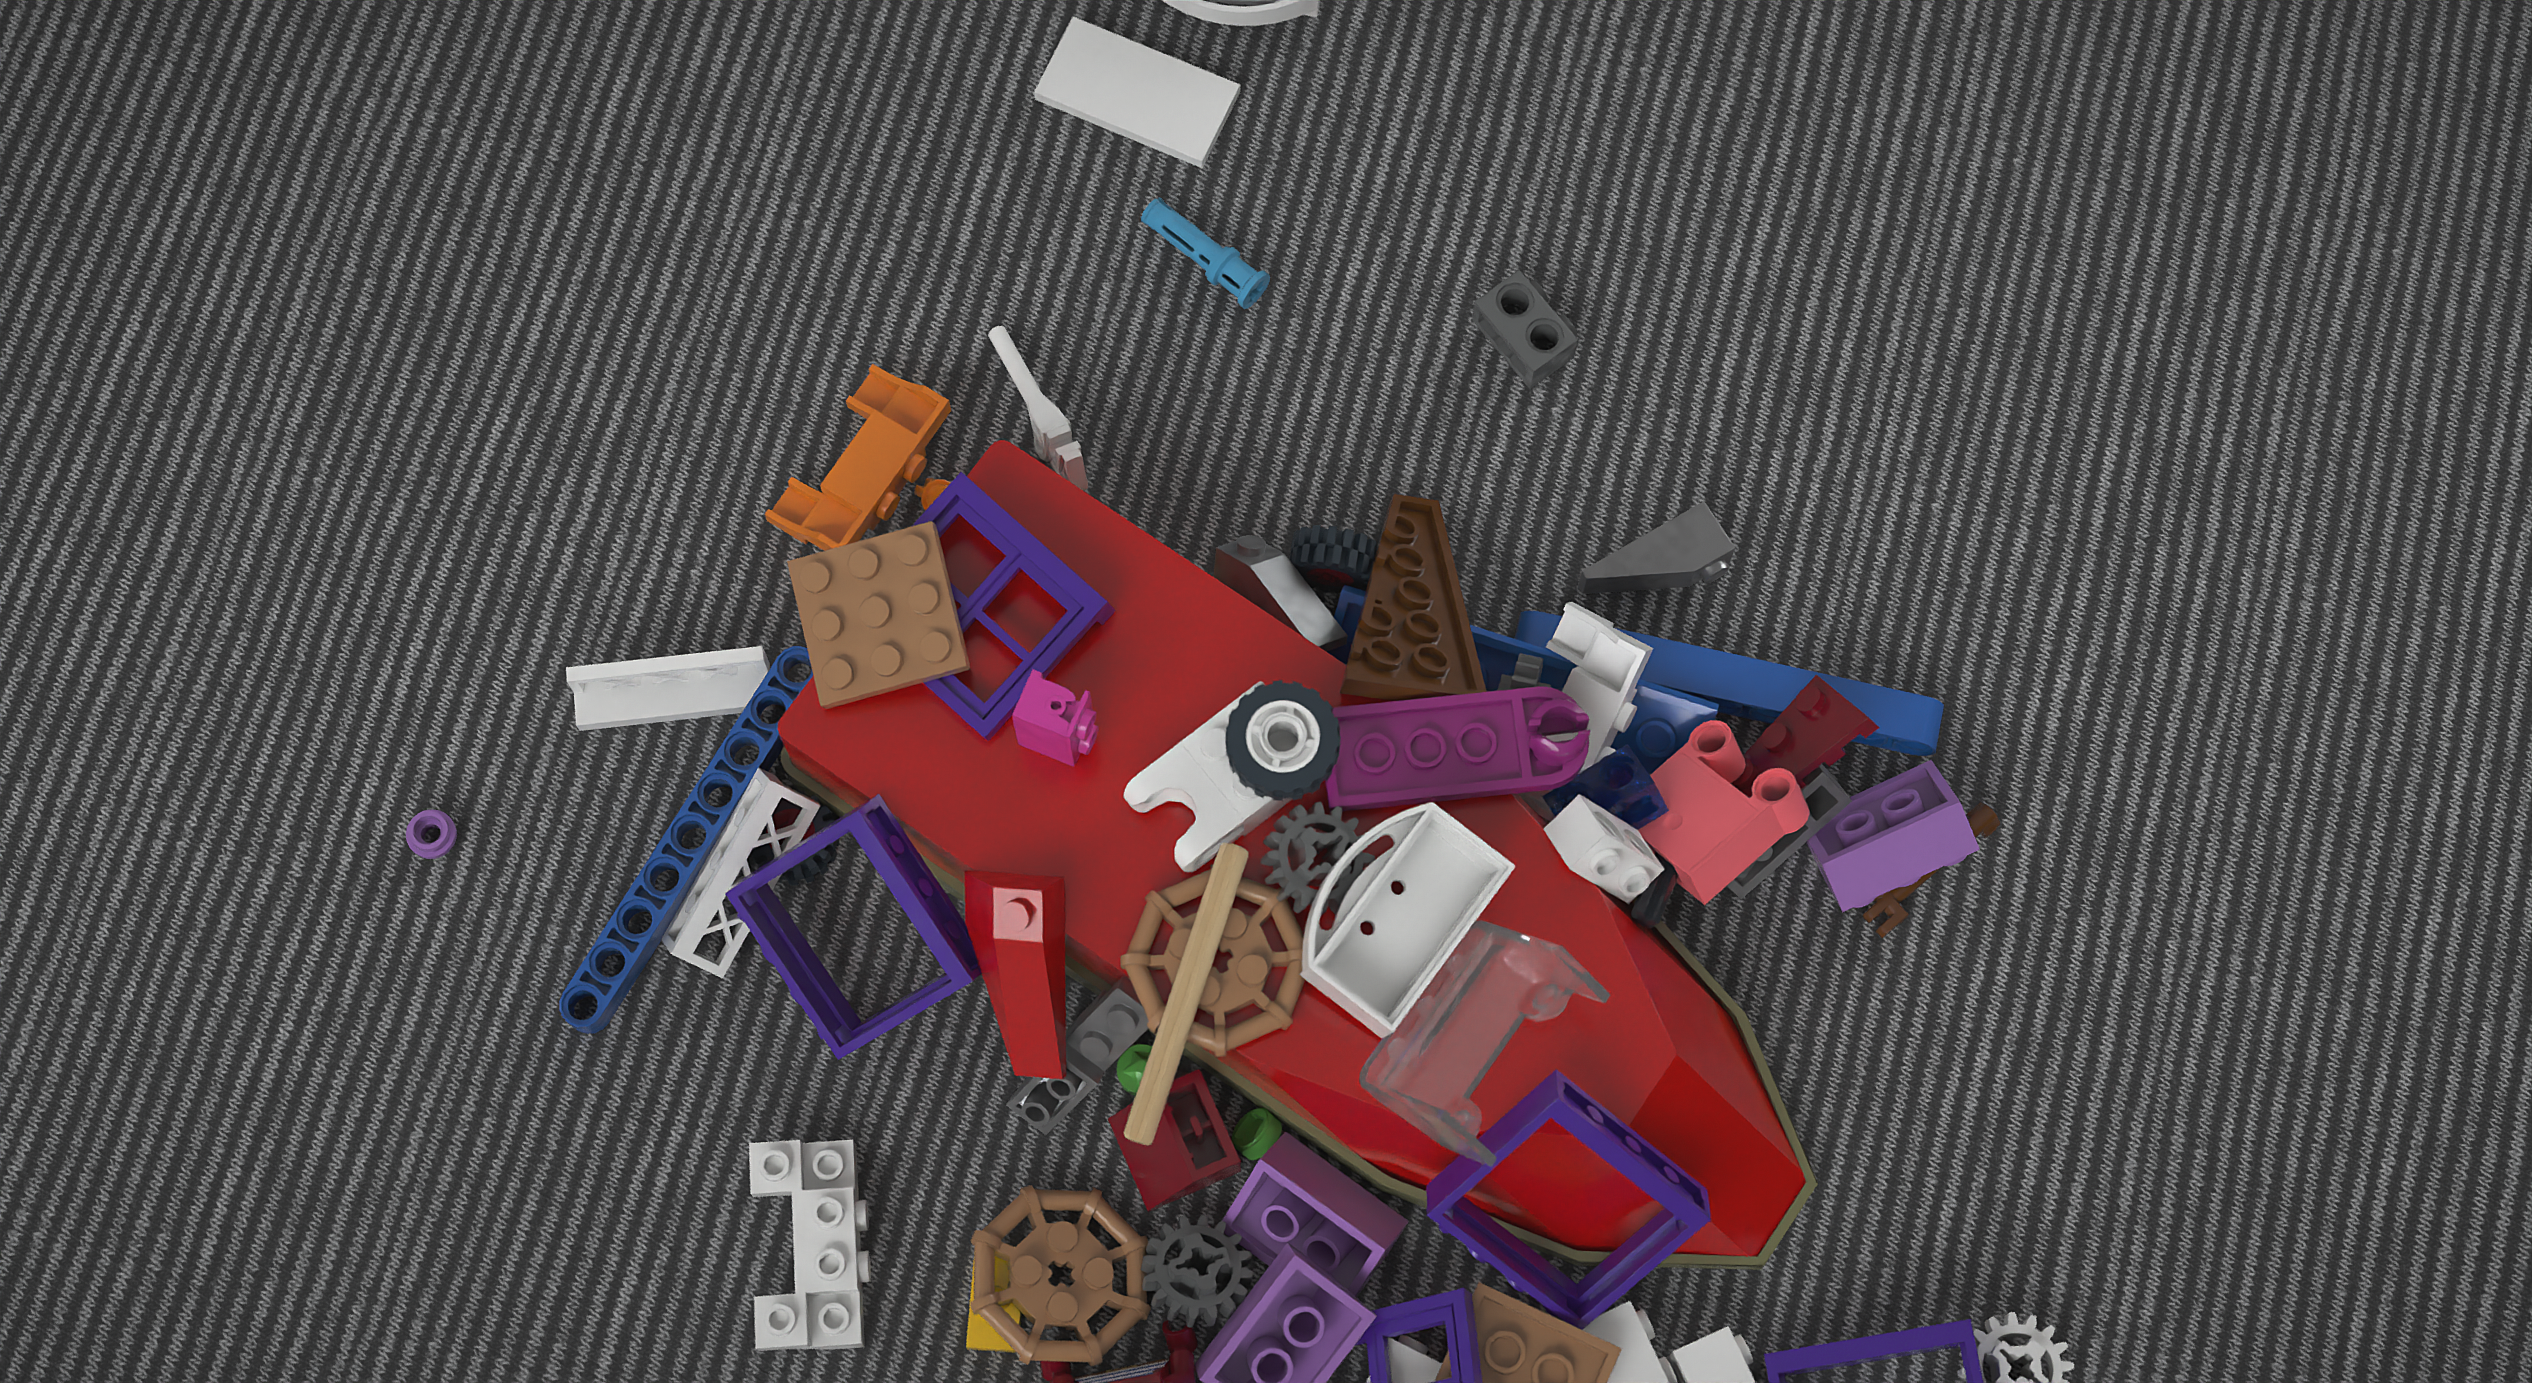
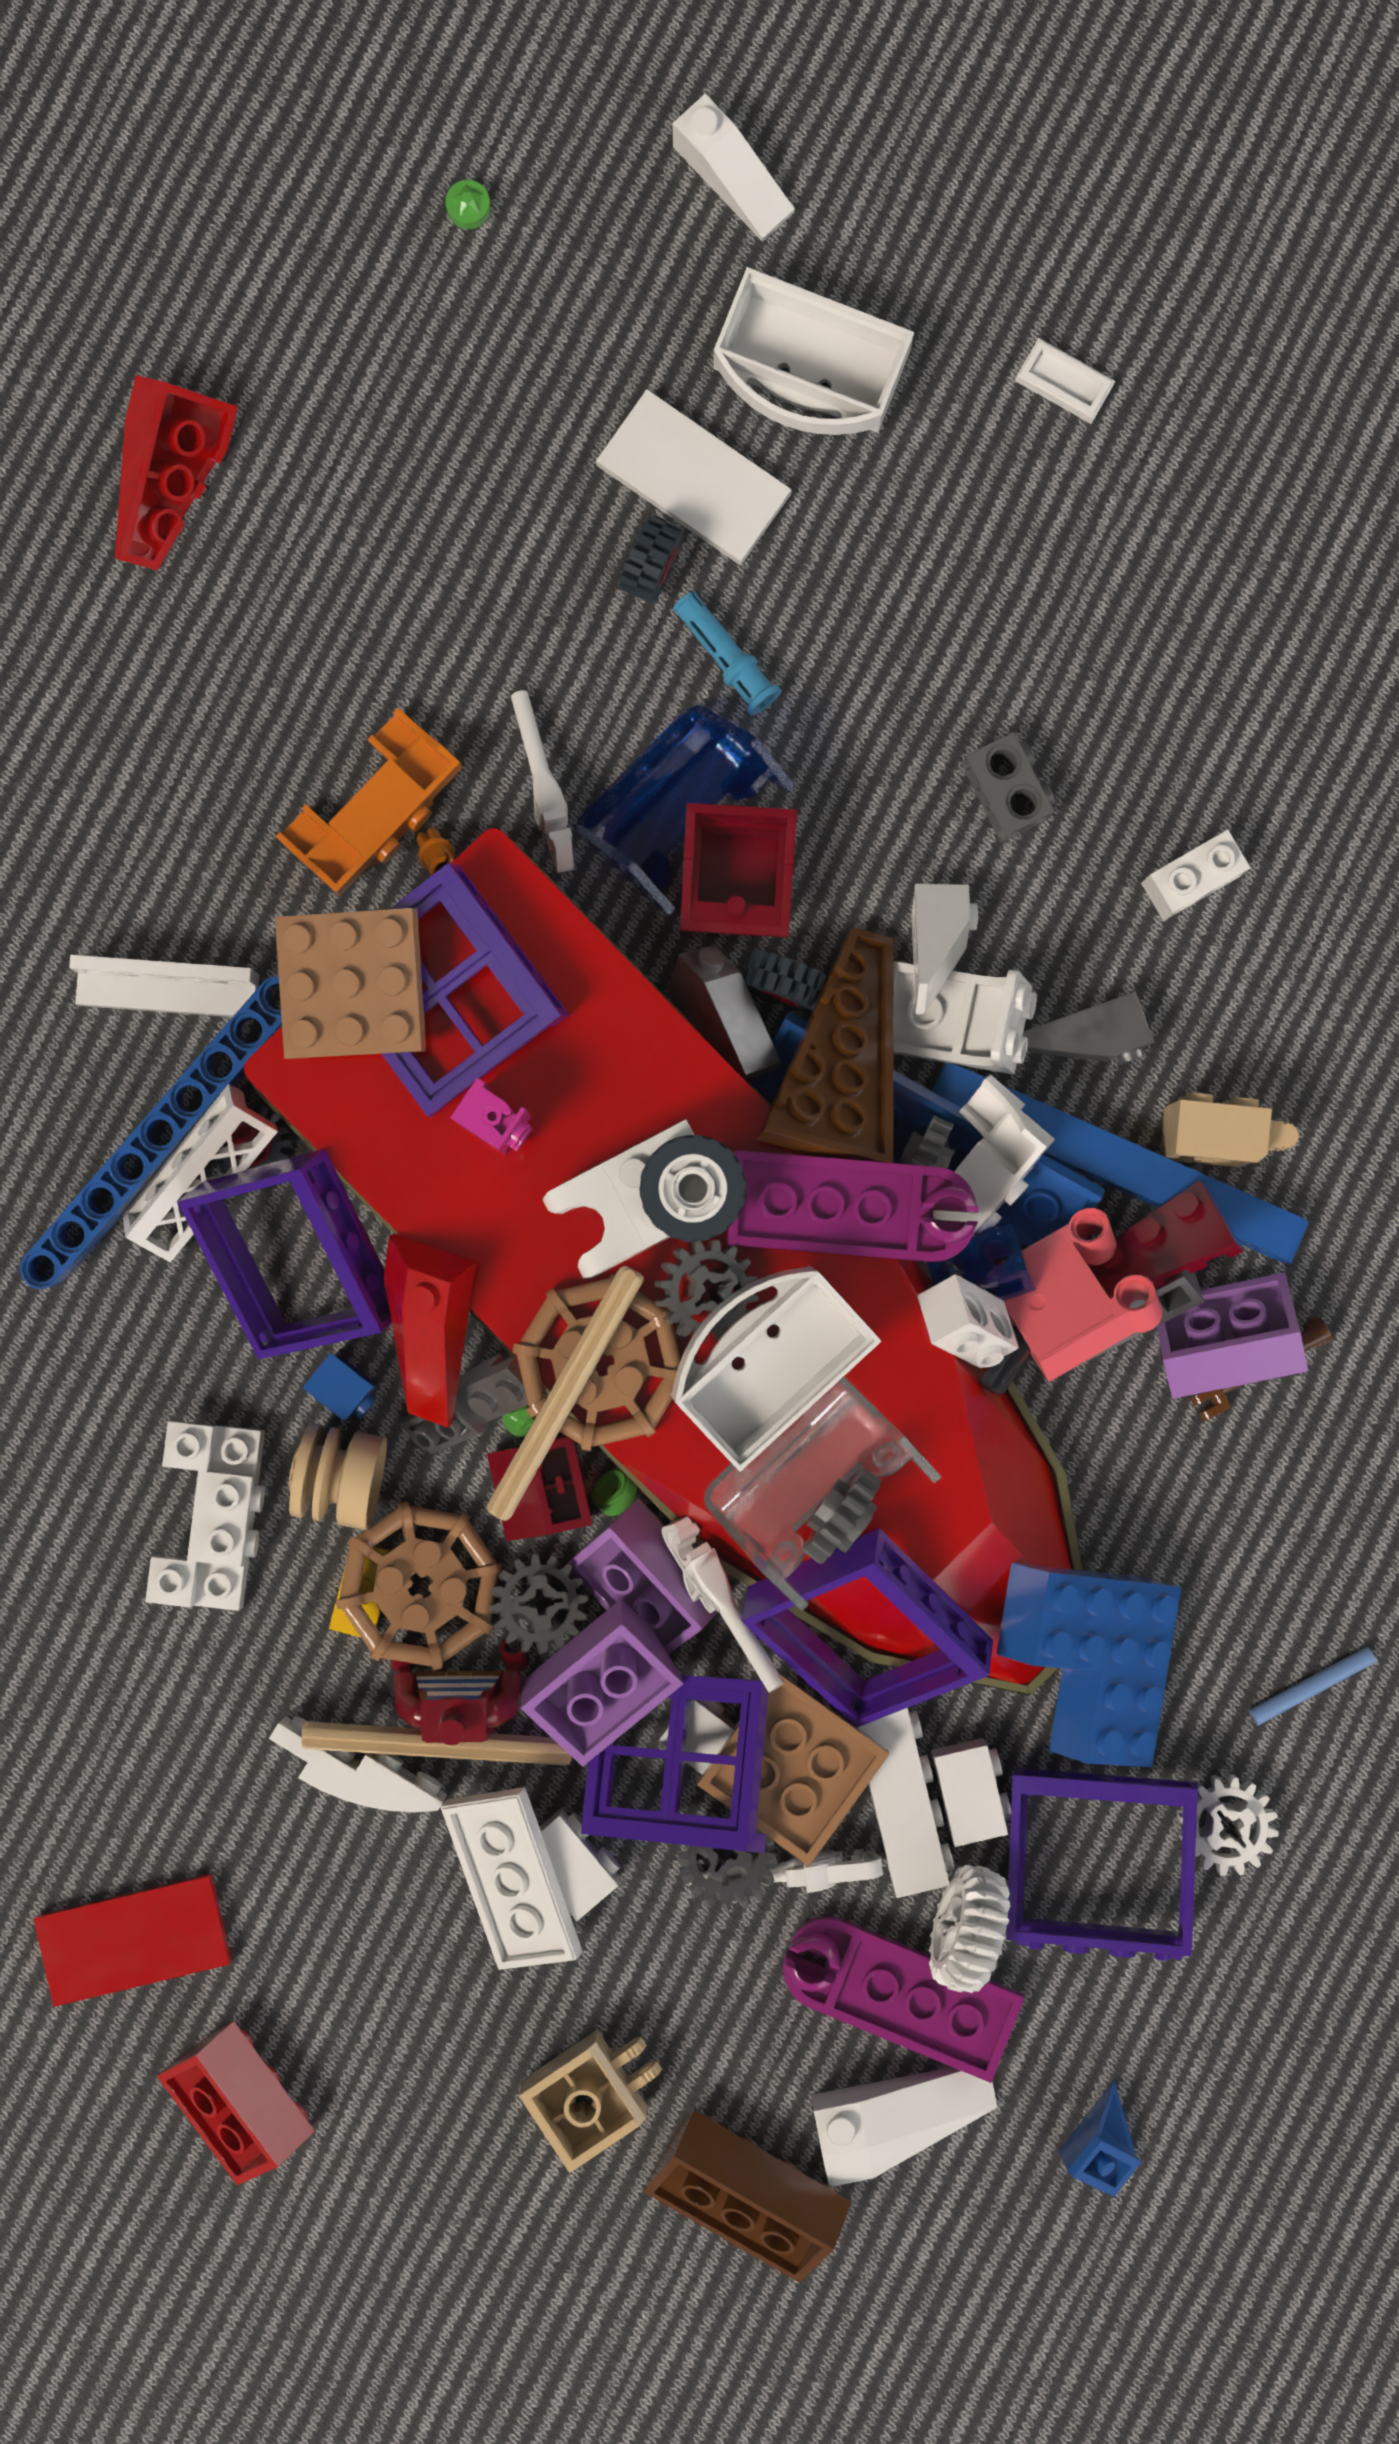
camera: 10 degrees right, 15 degrees up
(589, 161) = (166, 457): none -> red wedge
(935, 1076) = (342, 1387): none -> blue brick
(948, 1167) = (337, 1476): none -> tan wheel
(1110, 171) = (651, 558): none -> black wheel
(1178, 392) = (646, 806): none -> clear blue windscreen
(1261, 448) = (738, 870): none -> dark red piece
(1384, 1199) = (709, 1583): none -> white piece
(1486, 482) = (939, 936): none -> white slope
(1512, 1062) = (841, 1515): none -> dark grey gear
(1529, 559) = (969, 1023): none -> white bracket
(1739, 379) = (1195, 875): none -> white brick
(1829, 624) = (1222, 1133): none -> tan hinge
(1845, 1192) = (1113, 1653): none -> blue brick
(2071, 1201) = (1312, 1685): none -> medium blue bar

